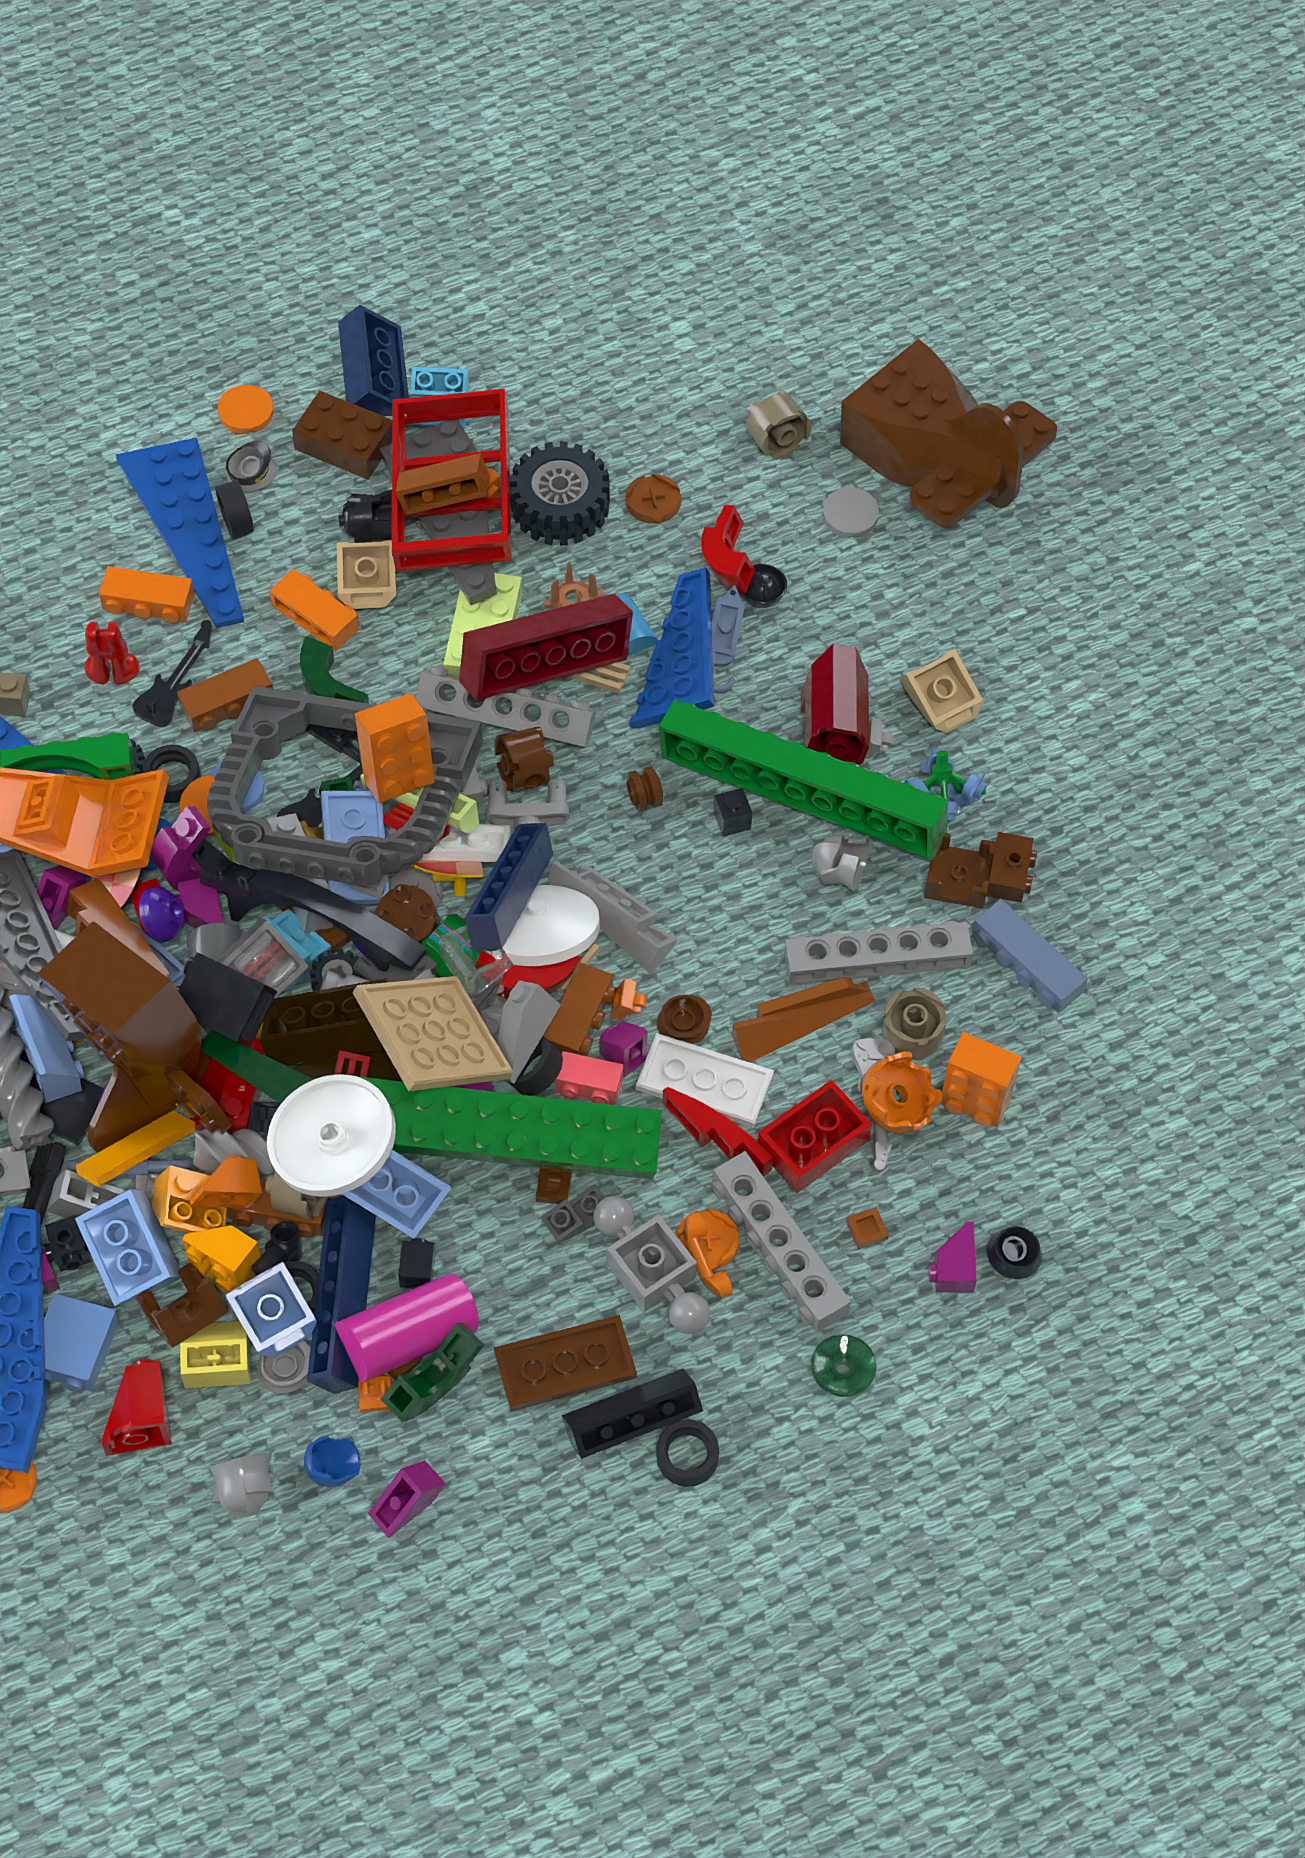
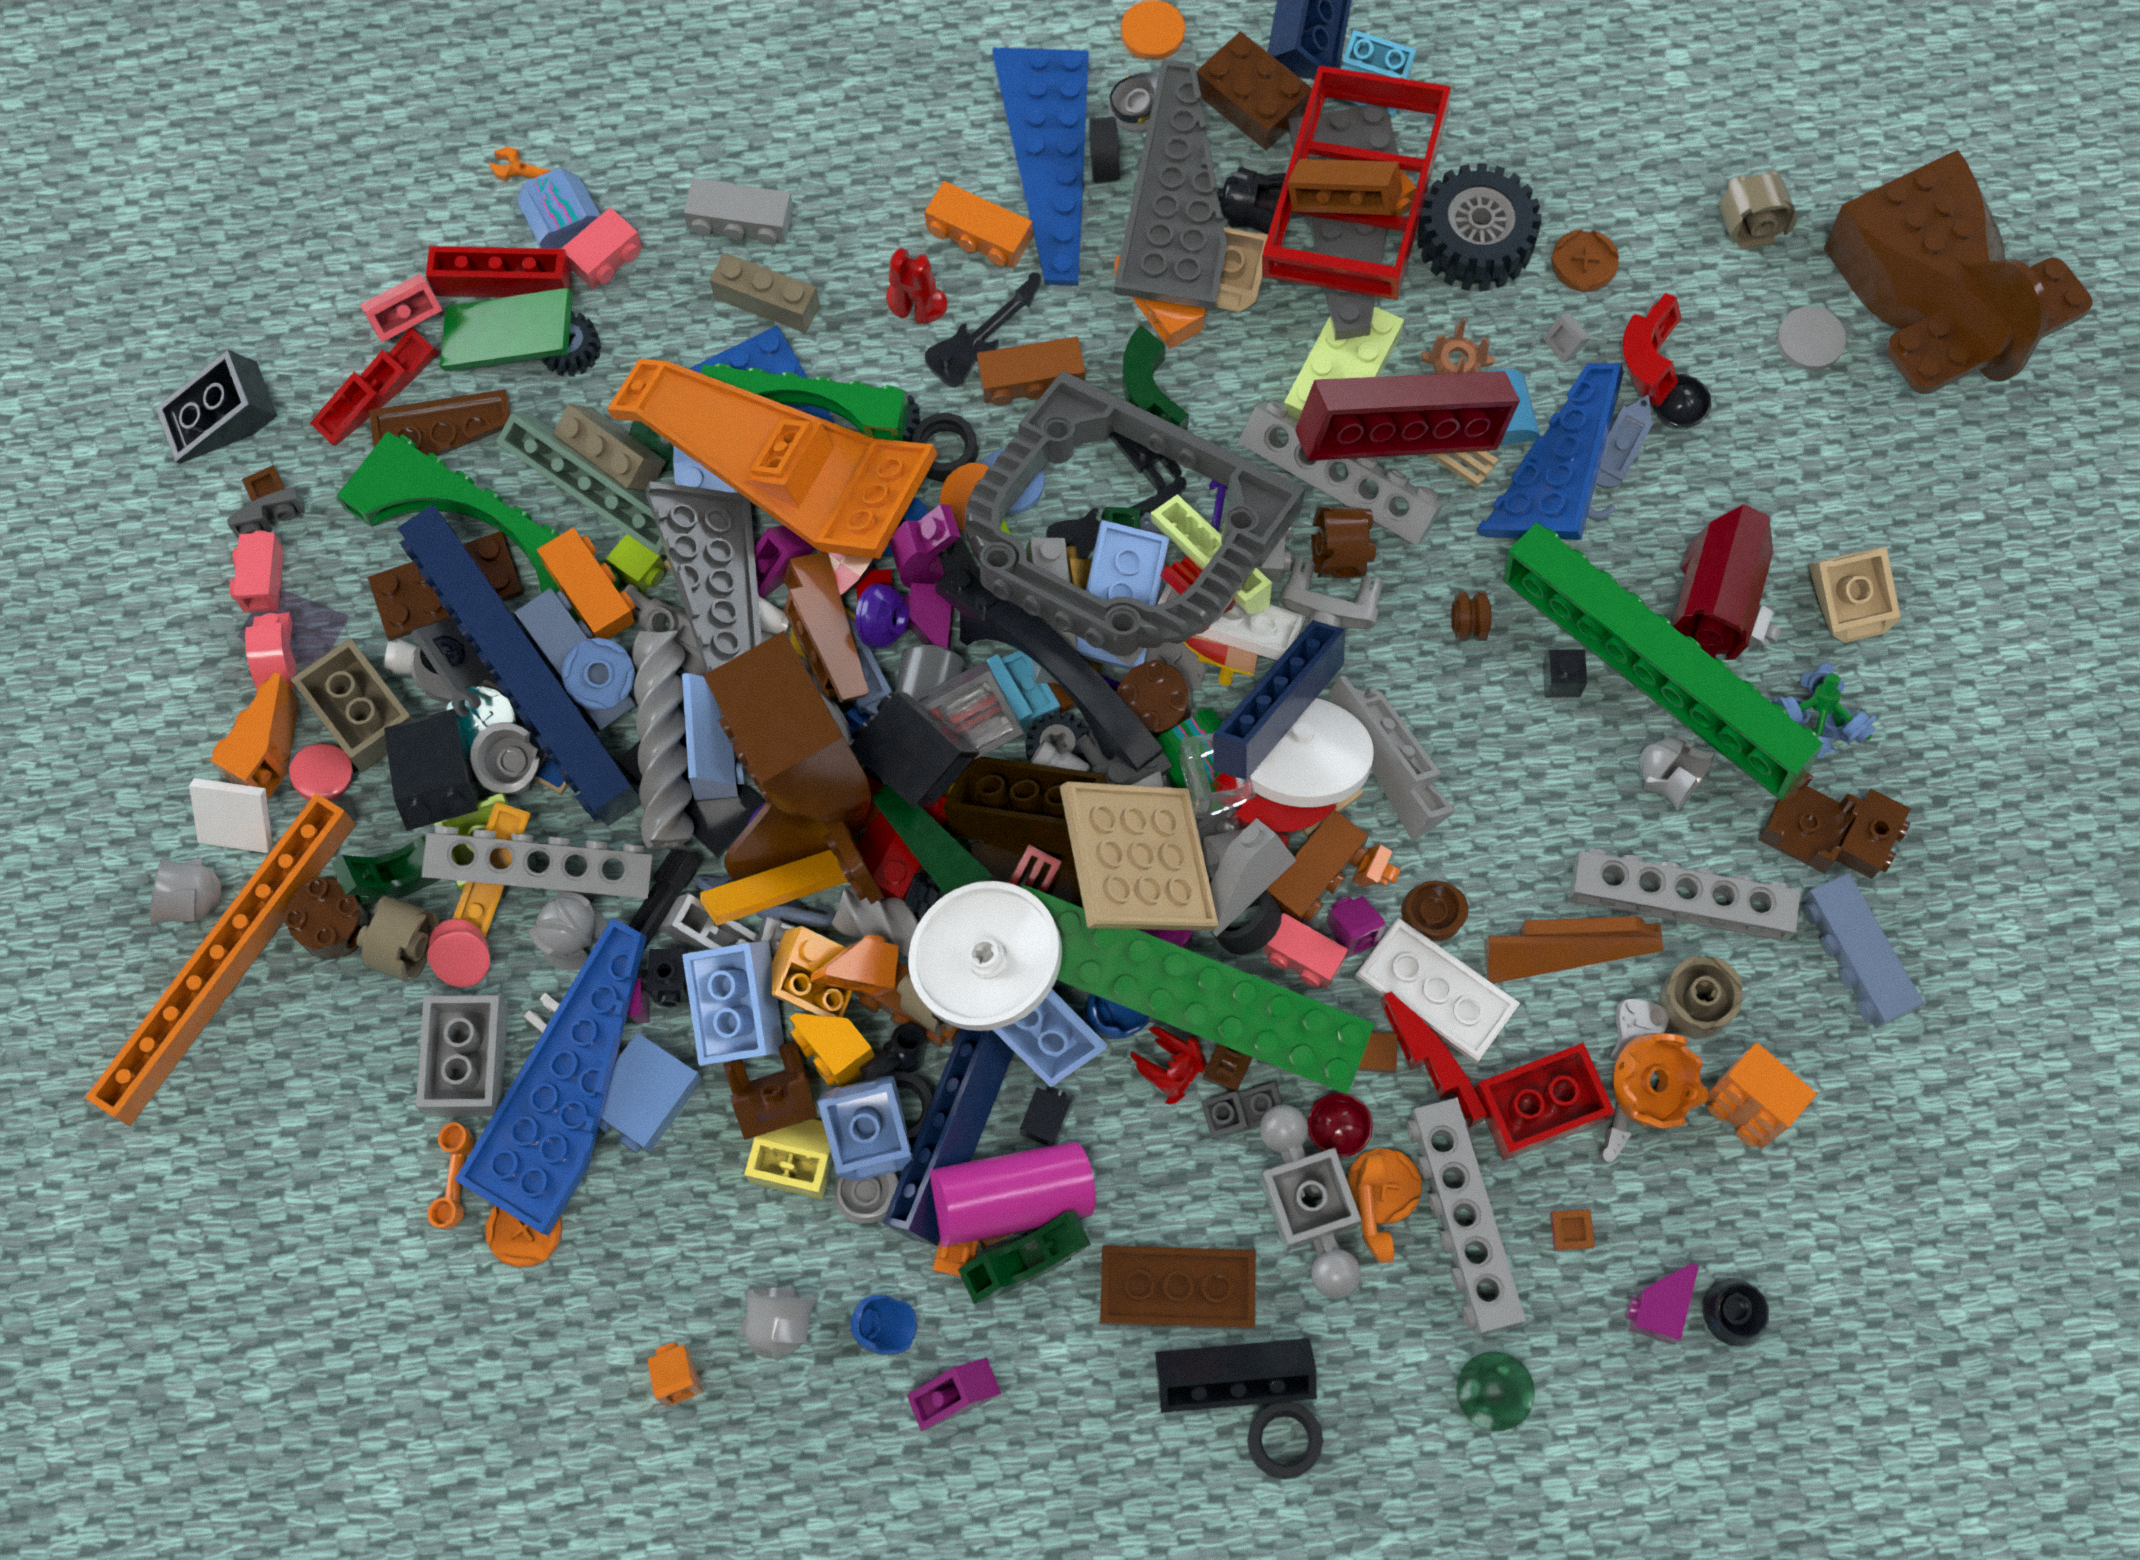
camera: 20 degrees right, 10 degrees up
(139, 1411) = (692, 1196): red slope -> none
(169, 1551) = (673, 1374): none -> orange slope
(311, 548) = (1175, 223): none -> dark grey wing
(395, 748) = (1193, 503): orange brick -> none
(450, 1170) = (1112, 1019): none -> blue hair
(510, 1205) = (1182, 1070): none -> red piece
(656, 559) = (1566, 337): none -> light grey tile
(660, 1197) = (1341, 1124): none -> dark red hat
(673, 1140) = (1380, 1053): none -> dark orange tile

